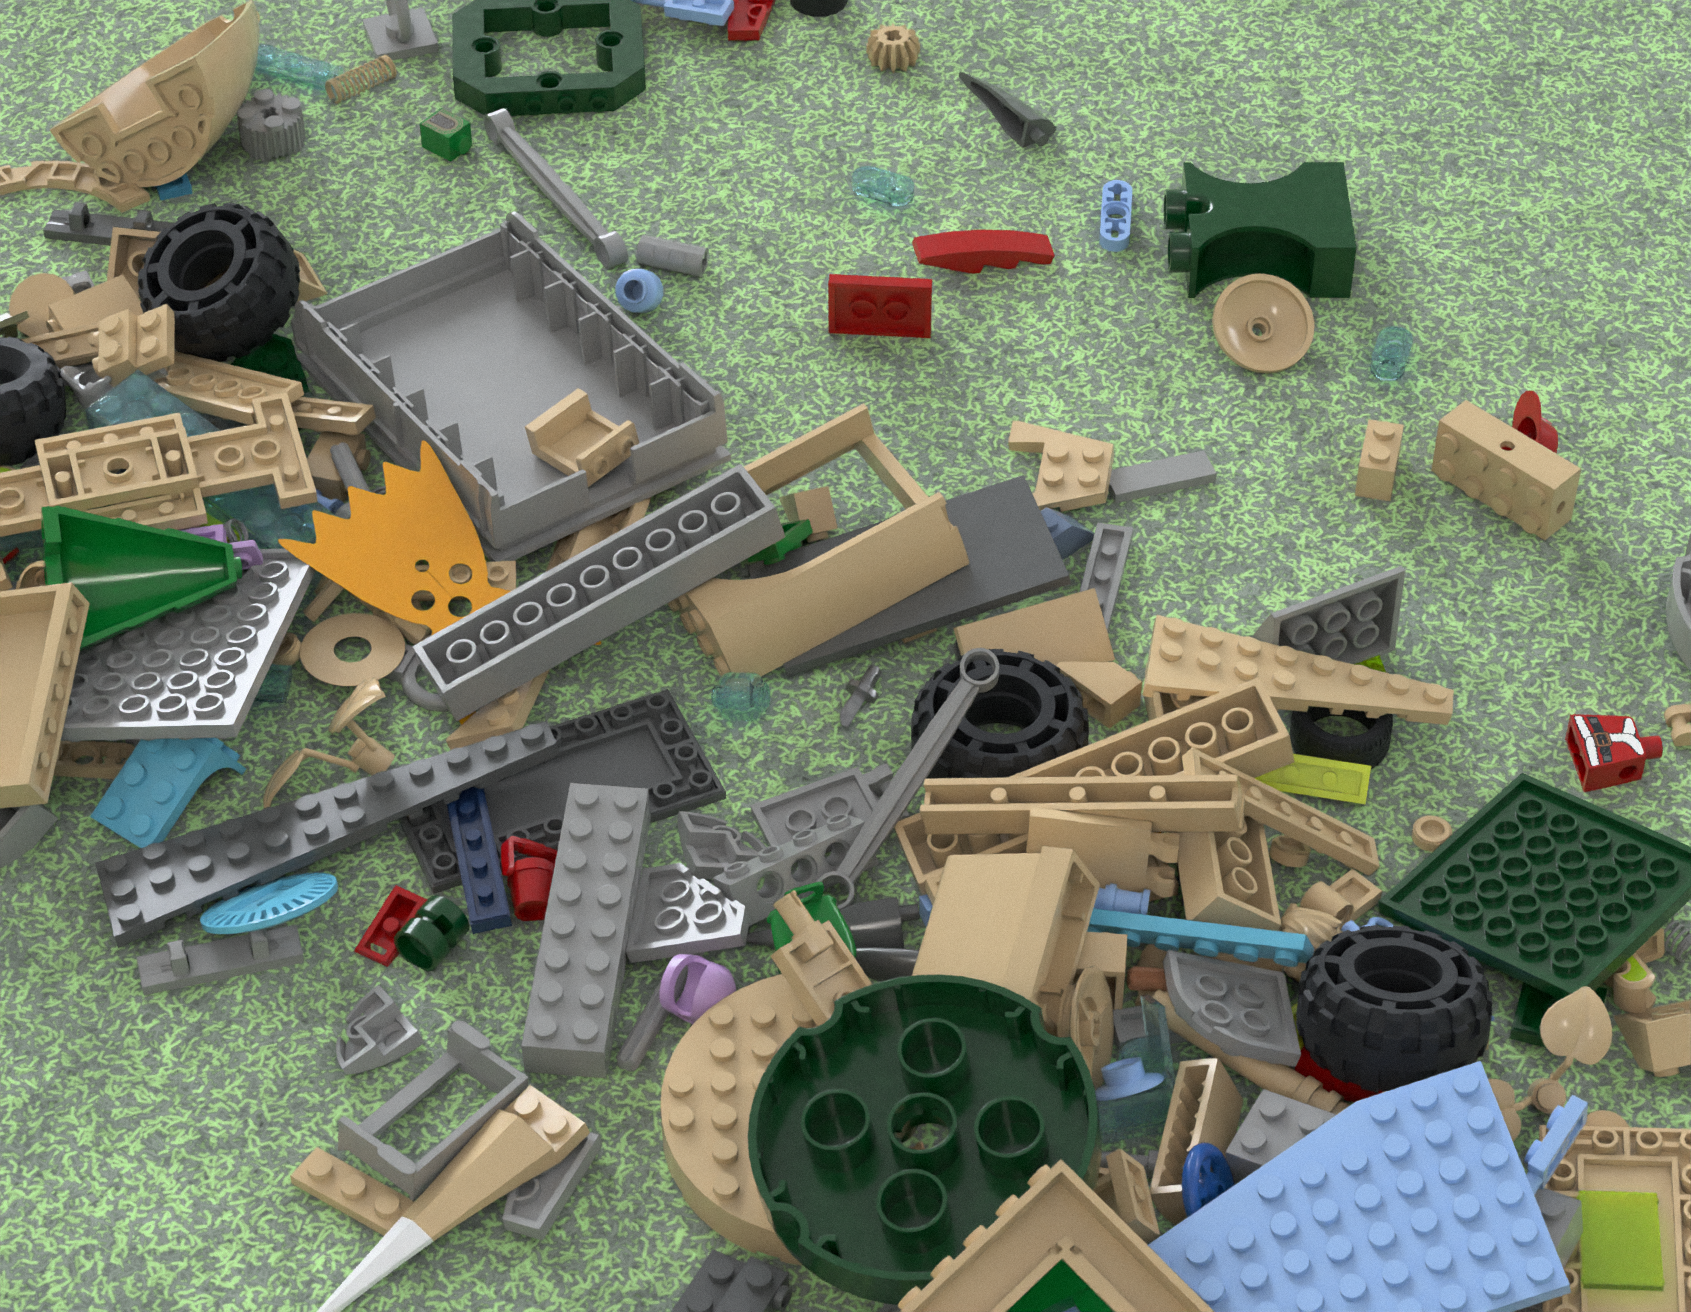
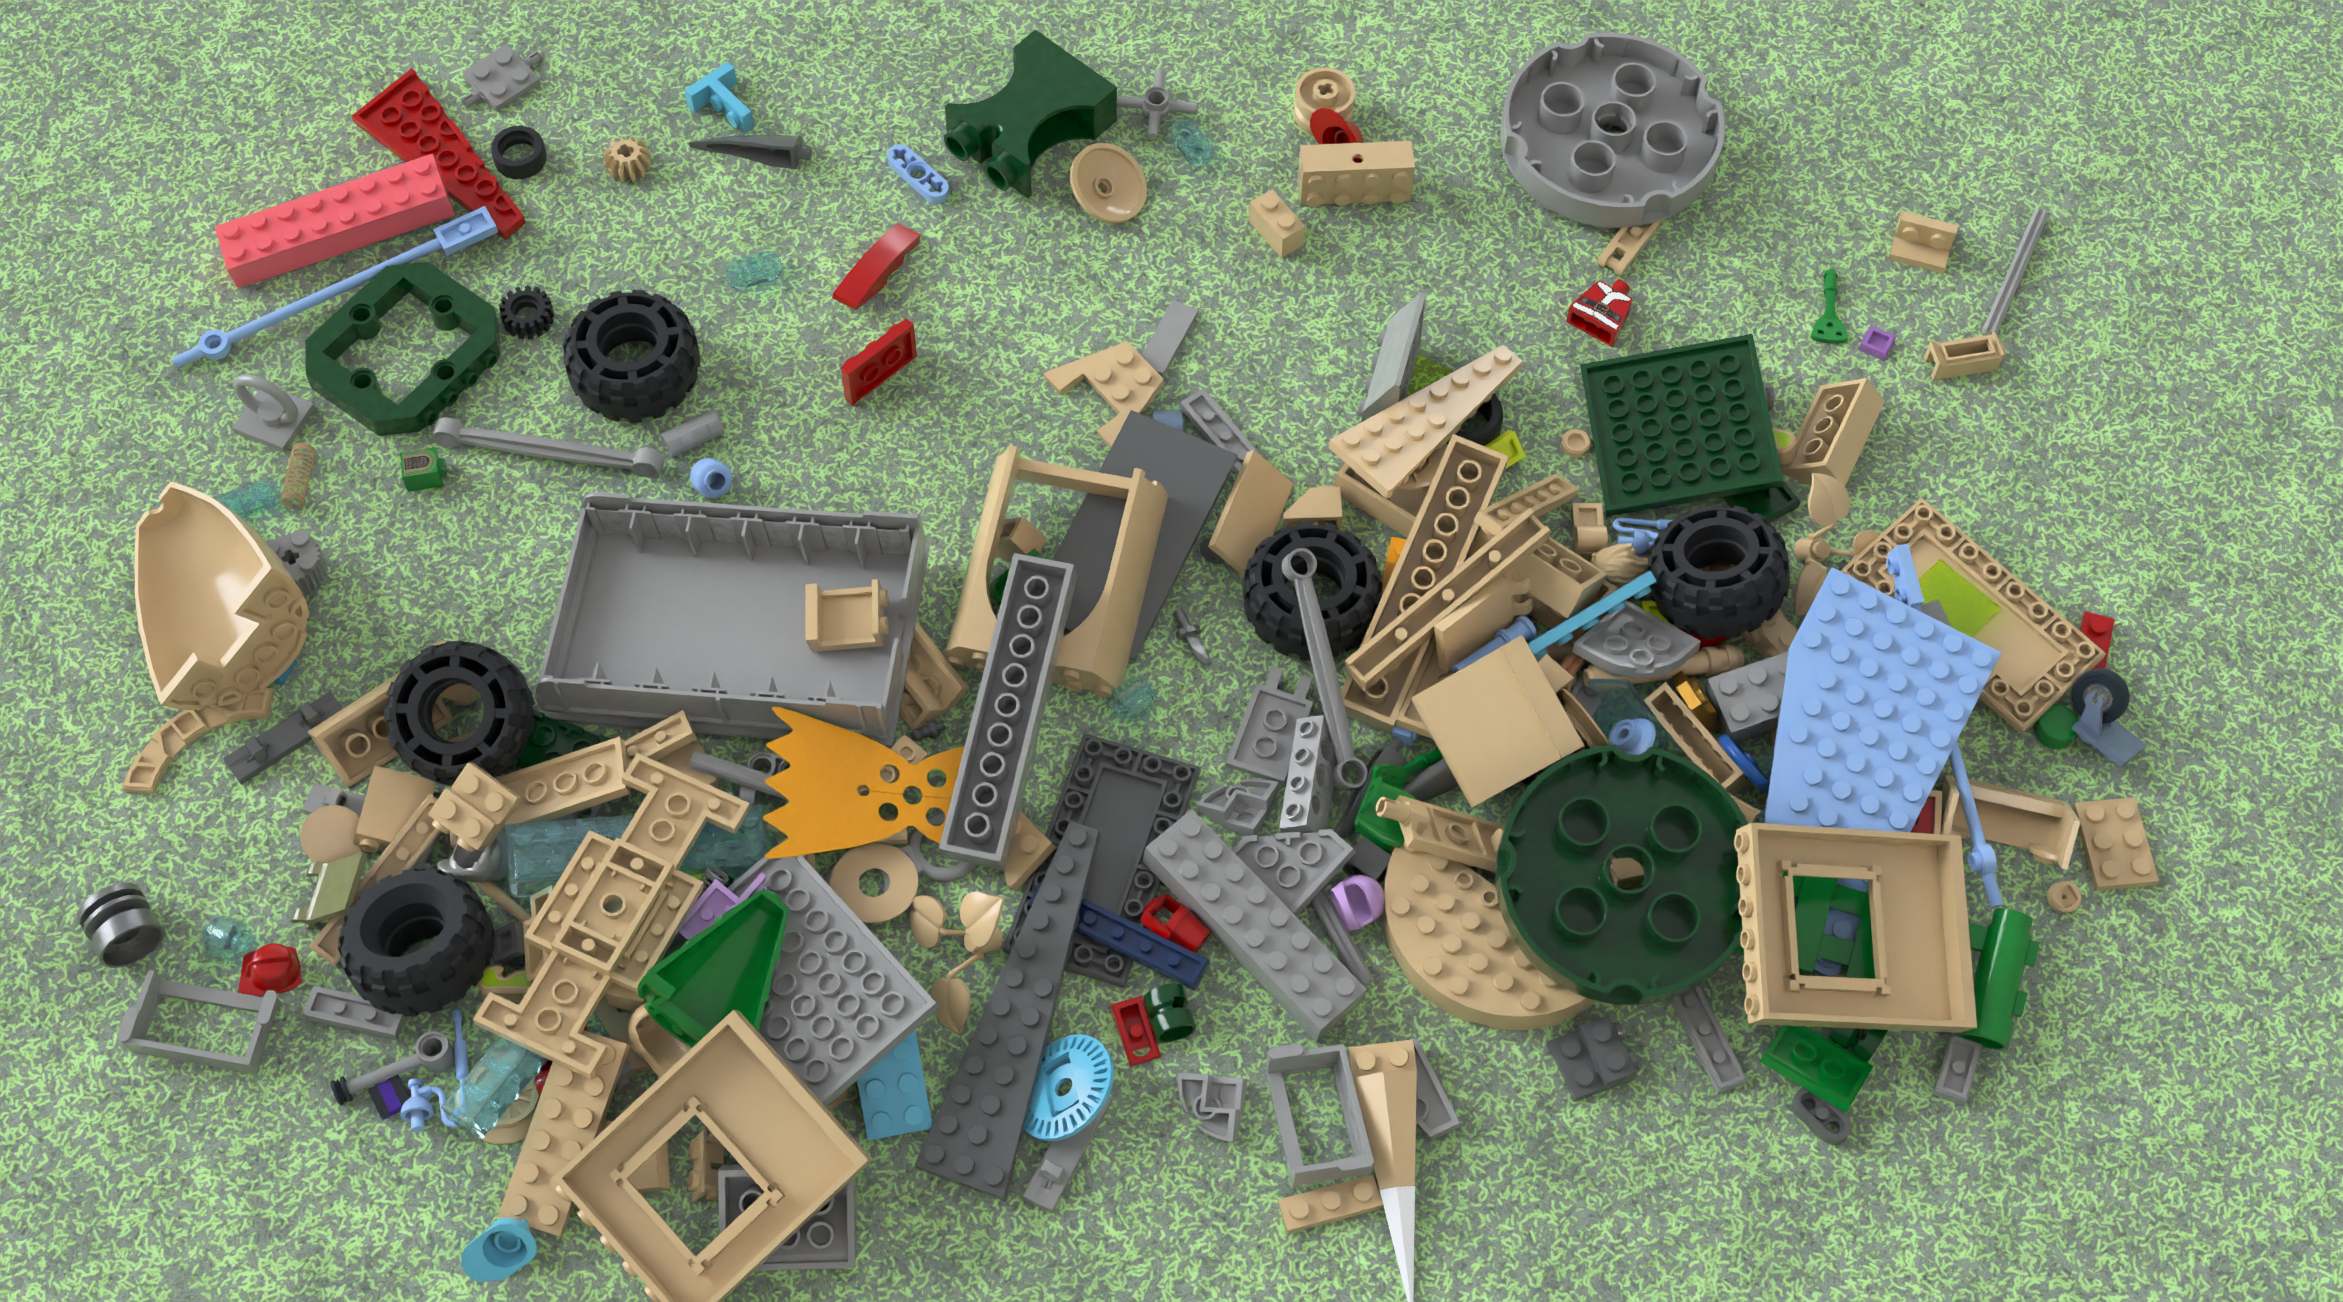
camera: 50 degrees left, 15 degrees up
(679, 83) = (529, 325): none -> black tyre
(695, 165) = (635, 387): none -> black tyre
(753, 964) = (1368, 860): none -> dark grey brick
(878, 931) = (1401, 773): none -> green piece
(1026, 47) = (715, 89): none -> medium azure bracket
(1229, 1099) = (1696, 700): none -> pearl gold plate
(1397, 304) = (1156, 104): none -> light grey bar
(1566, 398) = (1323, 89): none -> tan wheel

